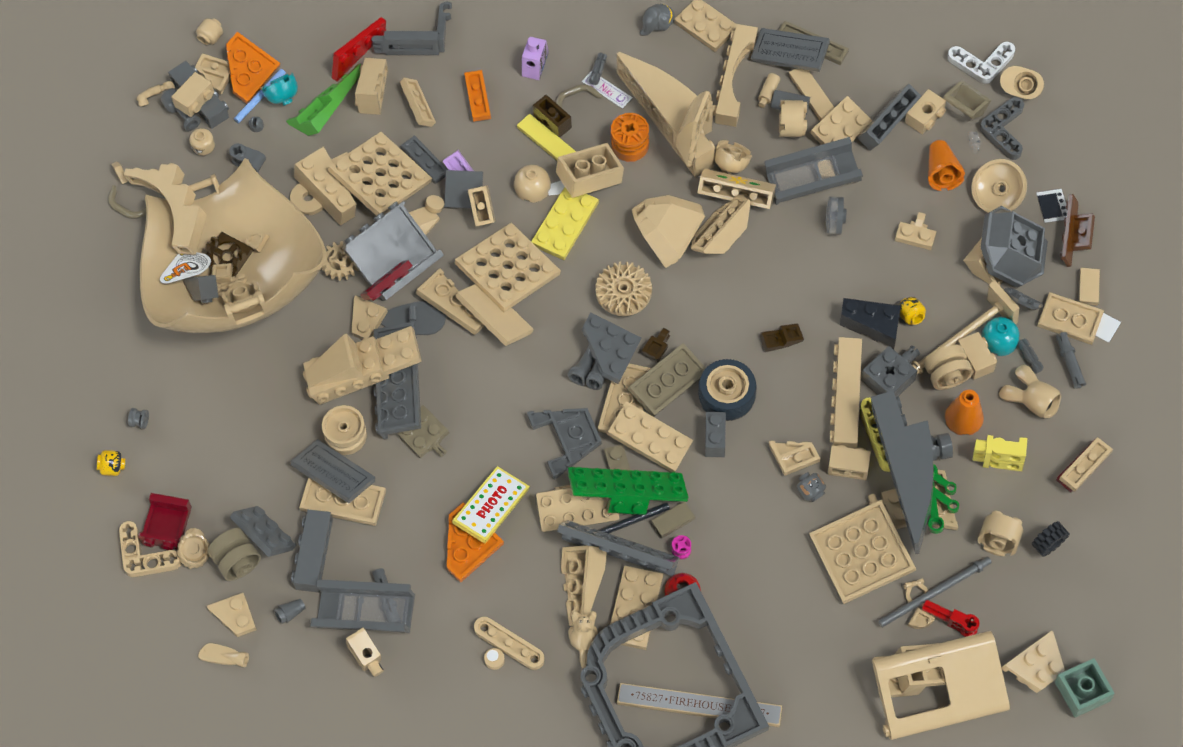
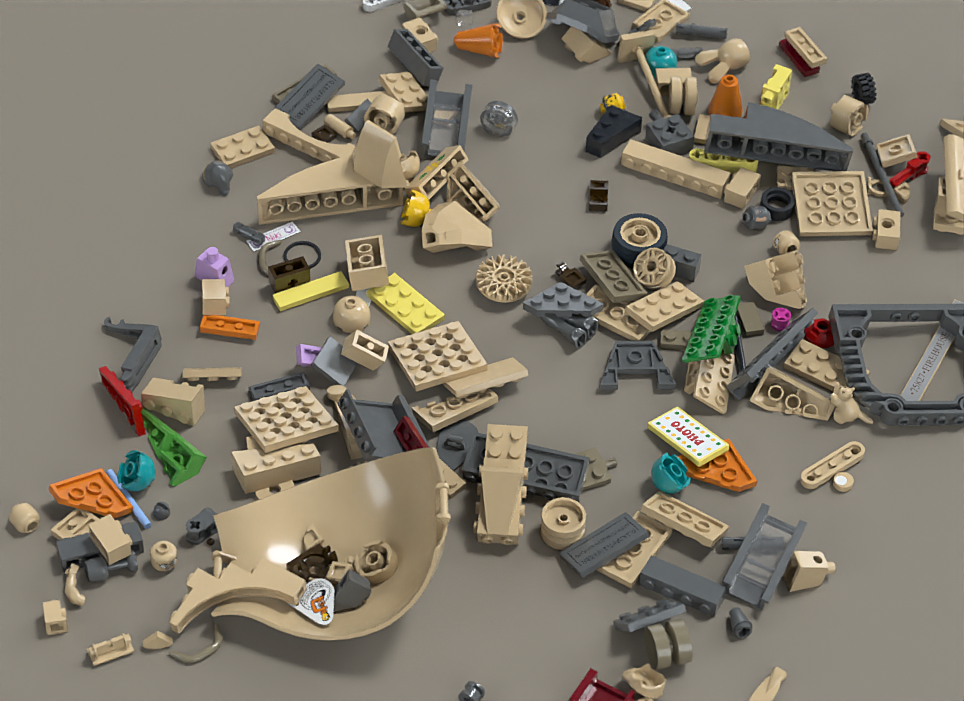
camera: 75 degrees left, 15 degrees down
(100, 142) = (110, 649): none -> tan hinge
(117, 91) = (55, 617): none -> tan brick
(234, 614) = (726, 670): tan wing -> none
(389, 529) = (684, 519): none -> tan plate
(434, 501) = (669, 474): none -> teal cylinder
(501, 69) = (214, 297): none -> tan brick
(593, 134) = (304, 243): none -> black piece
(630, 137) = (342, 223): orange wheel -> none
(681, 186) = (415, 209): none -> yellow cylinder
(687, 411) = (645, 265): none -> tan wheel
(732, 531) = (779, 279): none -> tan brick
(754, 82) = (324, 134): none -> dark brown tile
(786, 524) = (785, 242): none -> tan head
(794, 456) = (719, 221): tan wing -> none
(839, 488) = (779, 194): none -> black tyre
(843, 623) = (887, 229): none -> tan brick
(916, 233) = (534, 82): tan hinge -> none
(923, 406) = (701, 128): none -> tan tile
(972, 595) = (896, 150): none -> tan tile

